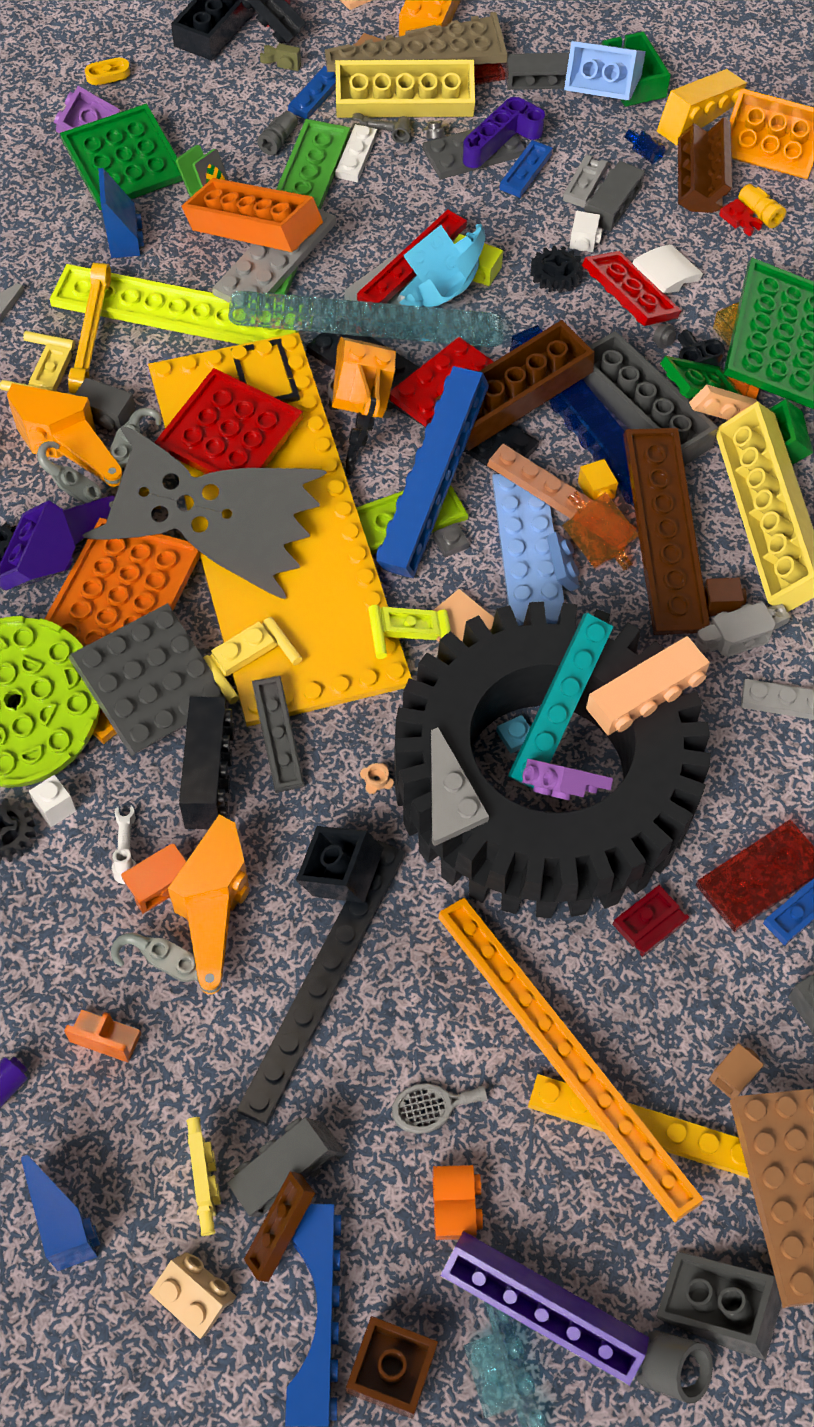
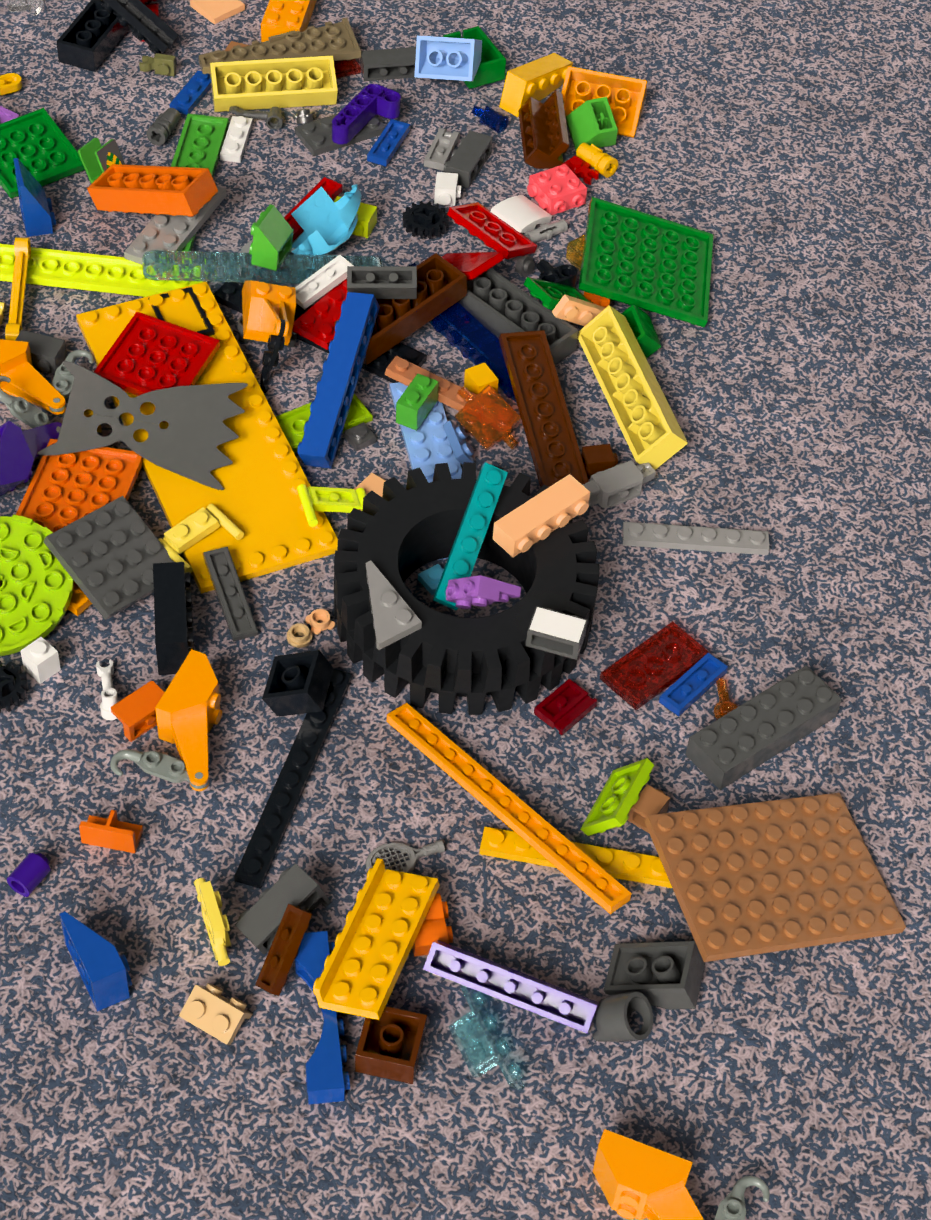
camera: 10 degrees left, 10 degrees down
(350, 787) = (299, 630): none -> tan plate
(375, 287) = (270, 239): none -> bright green slope
(388, 1231) = (375, 942): none -> yellow bracket
(430, 342) = (322, 281): none -> white plate
(495, 355) = (383, 281): none -> dark grey brick
(520, 505) = (417, 401): none -> bright green brick
(601, 333) = (473, 263): none -> red tile
(649, 846) = (556, 632): none -> brick
(700, 1056) = (617, 797): none -> lime plate
(707, 288) = (546, 231): none -> light grey pin
(712, 241) = (557, 189): none -> coral brick
(761, 161) = (592, 124): none -> bright green slope

